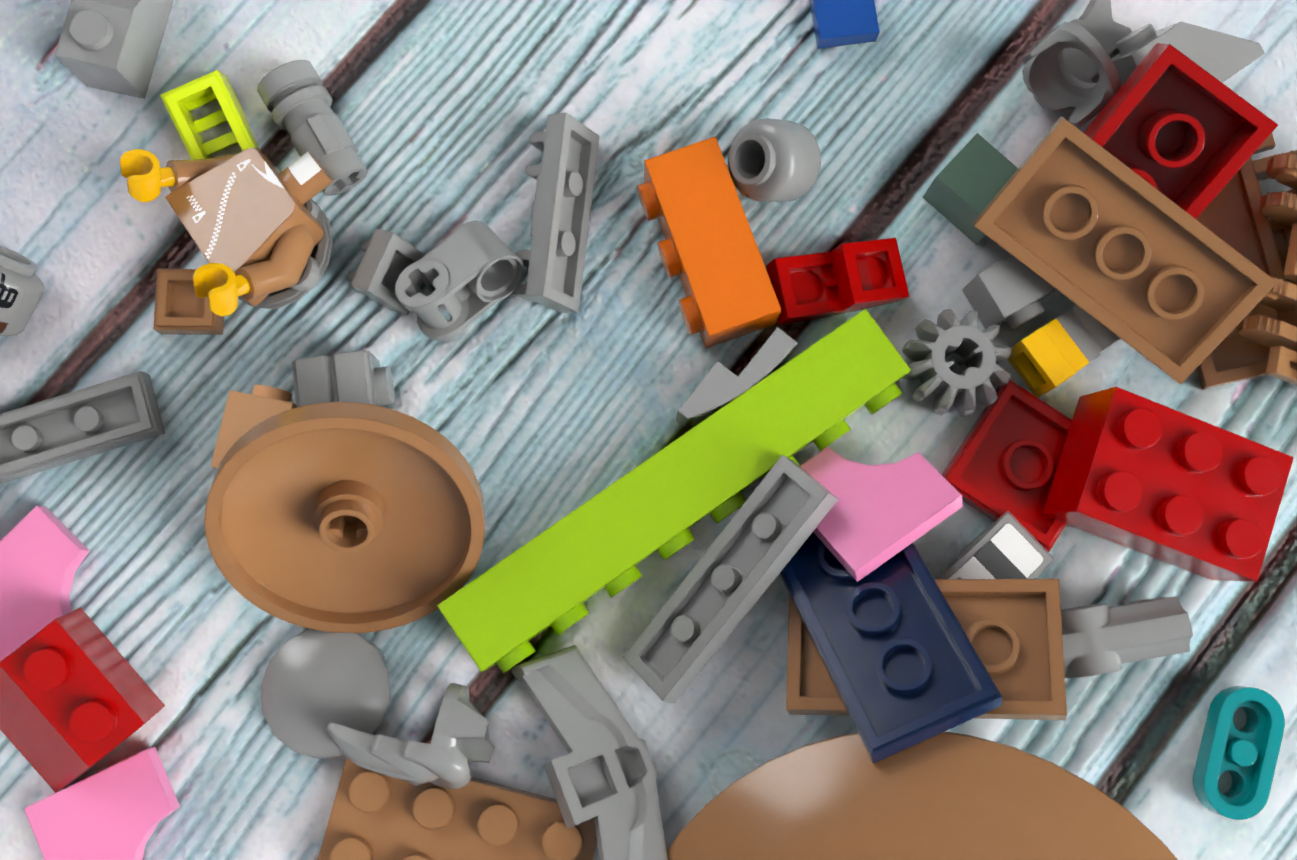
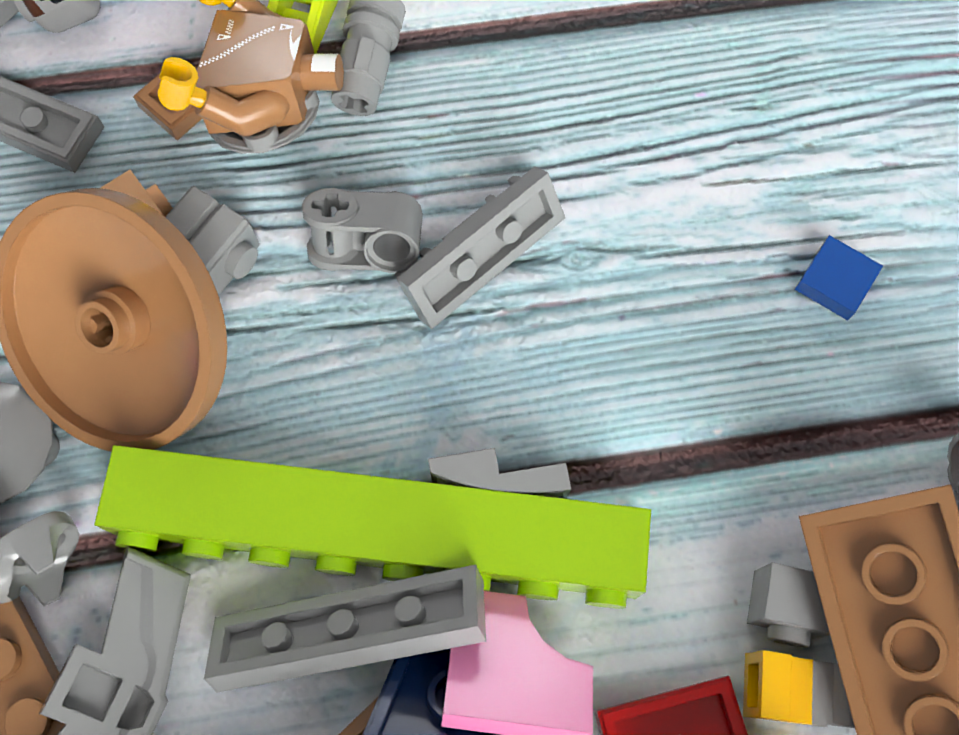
camera: 45 degrees right, 10 degrees down
(380, 267) = (319, 172): light grey tile -> none
(708, 243) = (571, 359): orange brick -> none
(774, 160) = (680, 337): light grey head -> none
(838, 281) = (653, 475): red slope -> none
(969, 185) = (829, 482): sand green brick -> none
(977, 352) = (694, 649): light grey gear -> none

